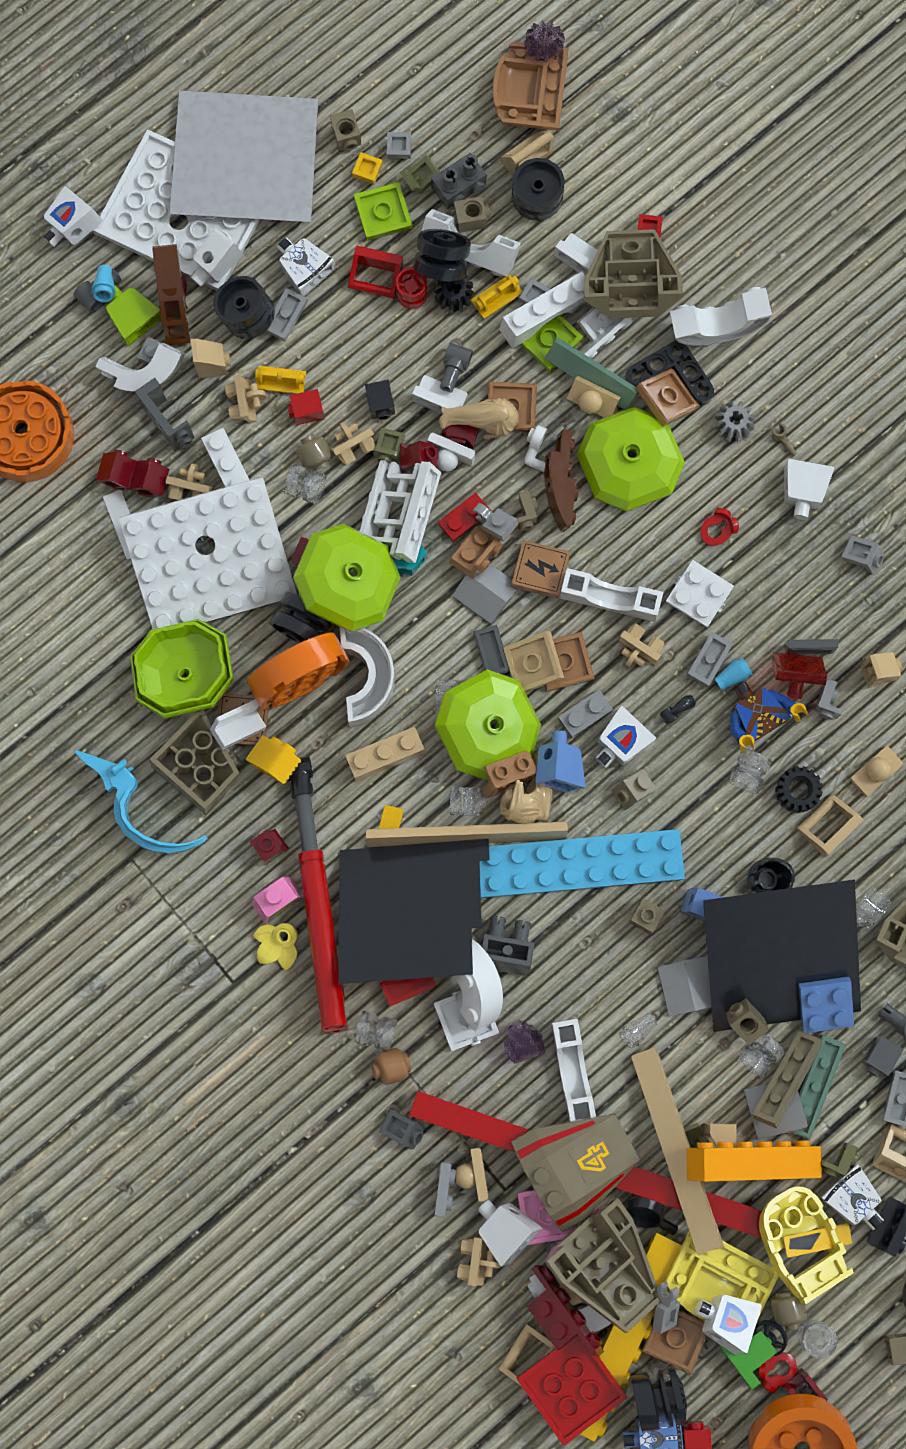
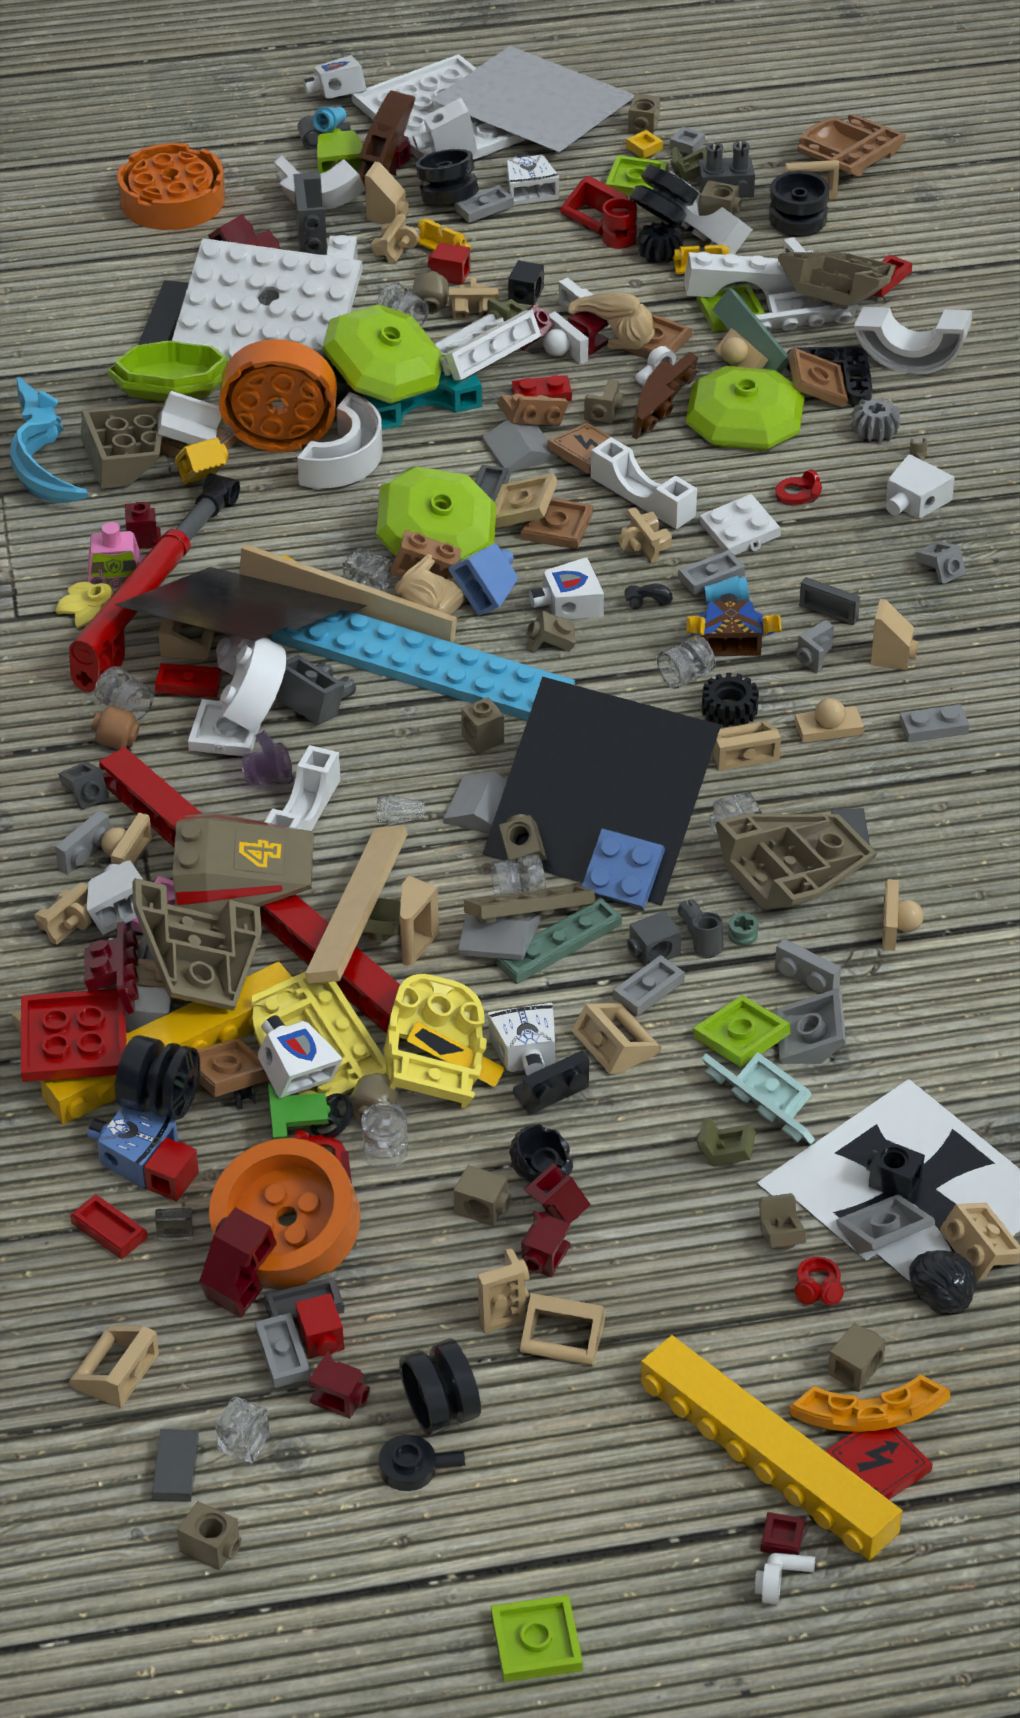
camera: 30 degrees right, 35 degrees down
(120, 589) = (165, 313): none -> black tile
(385, 754) = (315, 508): tan brick -> none
(455, 360) = (623, 281): dark grey pin -> none
(498, 523) = (568, 387): light grey plate -> none
(544, 41) = (883, 115): clear purple gear -> none
(585, 713) = (533, 564): light grey plate -> none
(649, 1214) = (281, 943): black piece -> none
(667, 1312) = (231, 1020): light grey plate -> none
(753, 1163) = (430, 921): light orange brick -> none
(797, 671) = (797, 605): clear red tile -> none
(846, 1159) = (550, 993): olive bracket -> none

